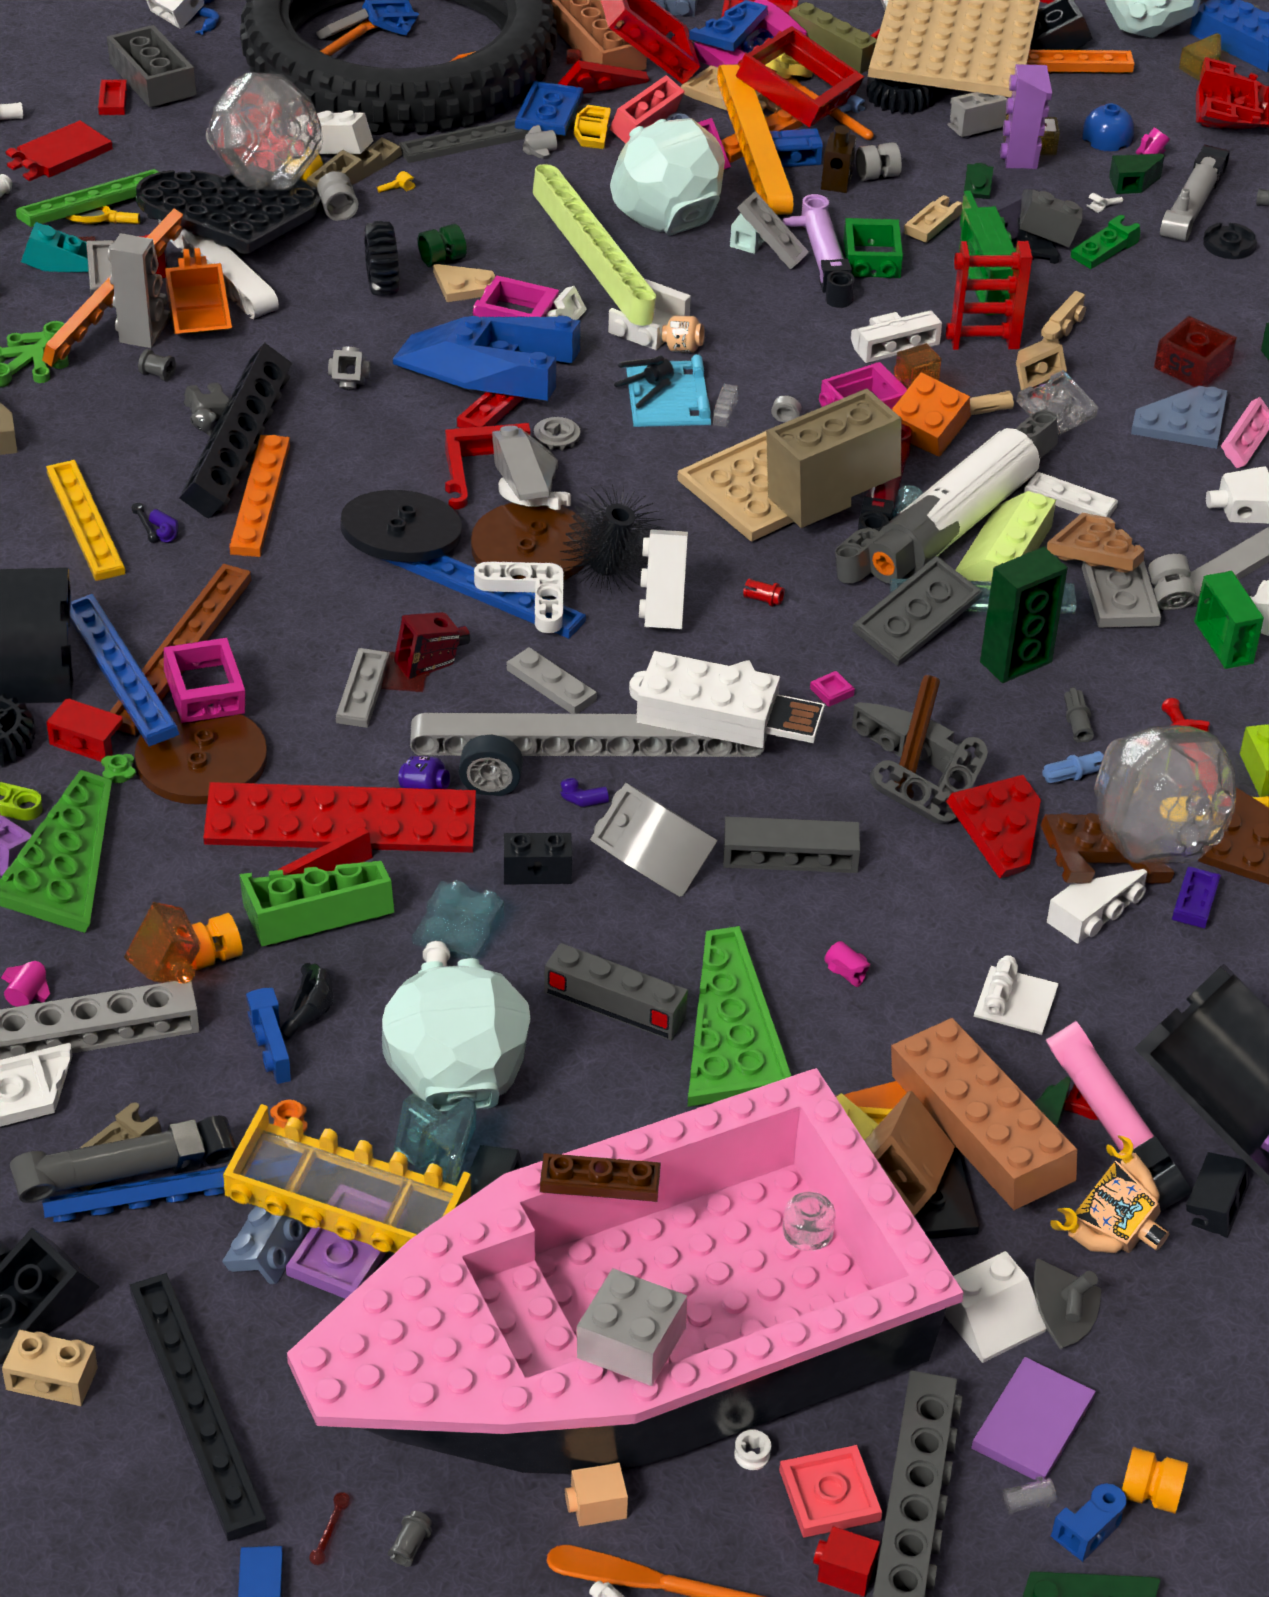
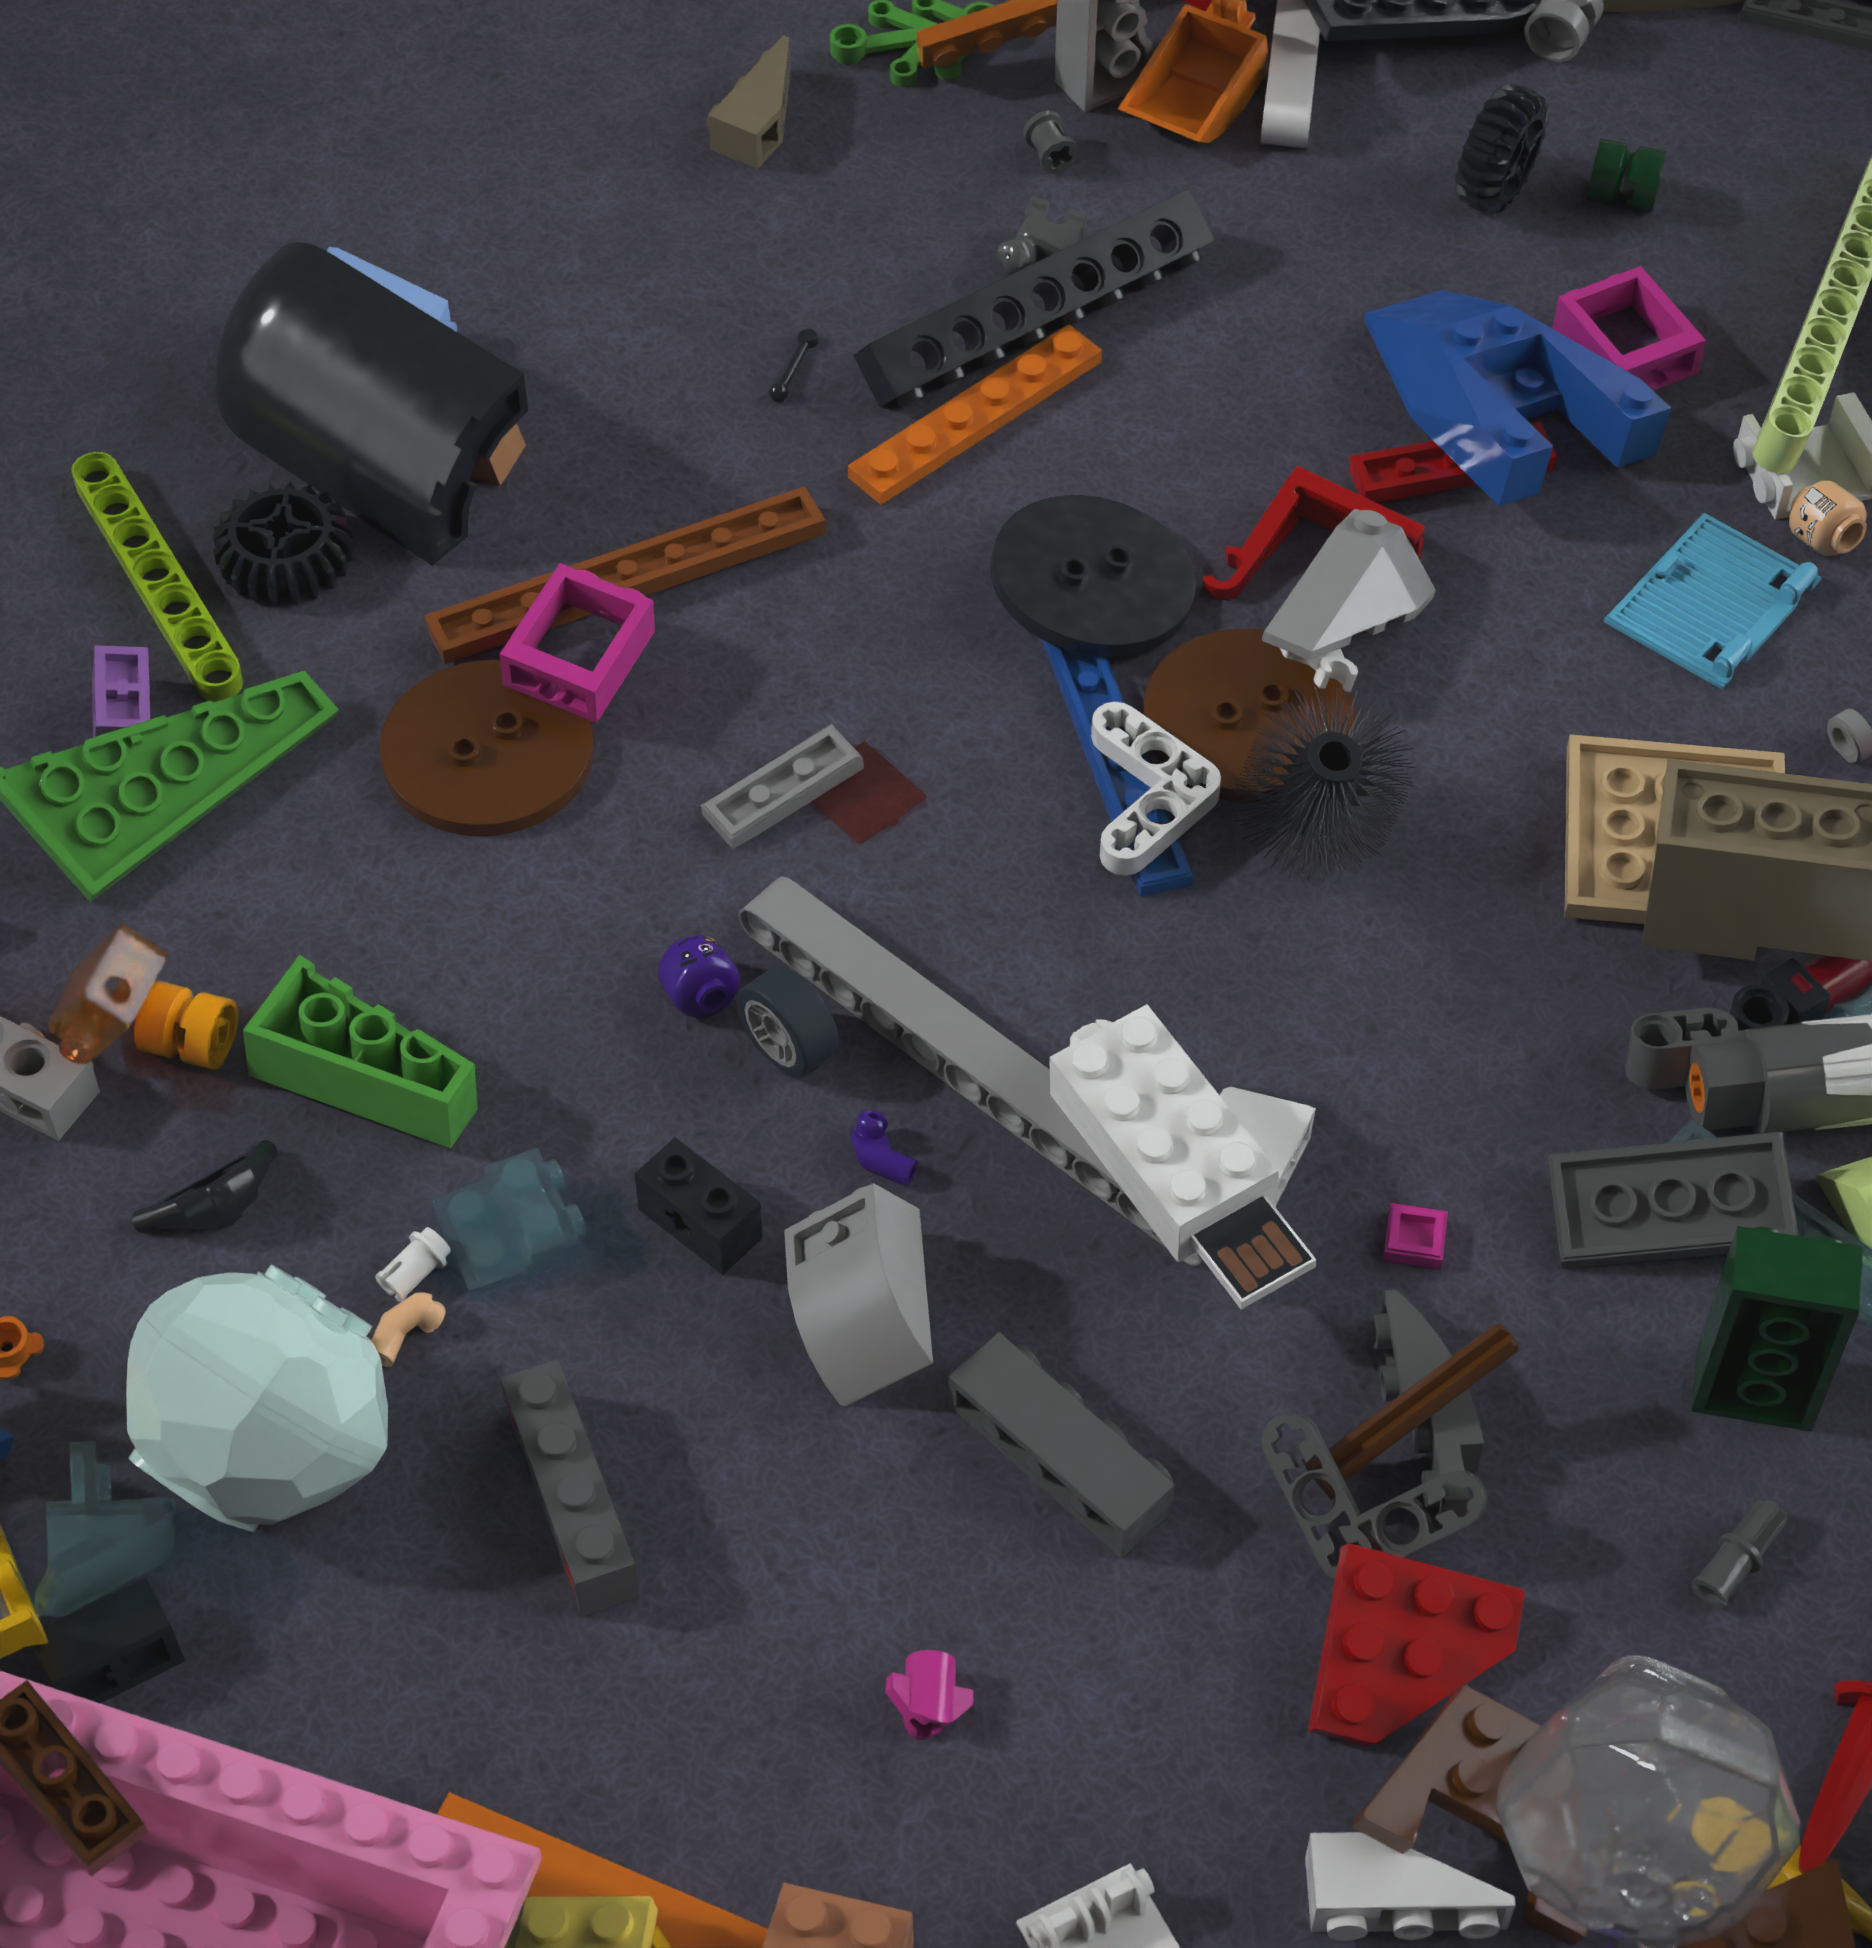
camera: 45 degrees right, 10 degrees up
(83, 729) = (381, 613): red panel -> none
(85, 520) = (725, 317): yellow tile -> none
(118, 767) = (374, 707): bright green plate -> none
(122, 671) = (510, 562): blue tile -> none
(167, 525) = (812, 387): dark purple arm -> none
(265, 1025) = (108, 1209): blue plate -> none
(320, 814) = (543, 963): red plate -> none
(342, 360) = (1283, 292): light grey brick -> none
(348, 849) = (453, 1012): red tile -> none
(402, 181) = (1694, 44): yellow hand -> none
(428, 643) = (921, 778): dark red torso -> none
(462, 282) = (1604, 247): tan wing -> none
(547, 429) = (1475, 550): light grey gear -> none
(551, 681) = (1036, 947): light grey plate -> none
(568, 304) = (1704, 376): white plate -> none
(658, 372) = (1714, 554): black plant -> none
(664, 579) = (1320, 897): white brick -> none
(725, 405) = (1766, 672): clear beam -> none
(734, 1030) = (656, 1677): bright green wing -> none
(765, 592) = (1486, 1012): red pin -> none
(1073, 767) = (1626, 1634): medium blue axle -> none

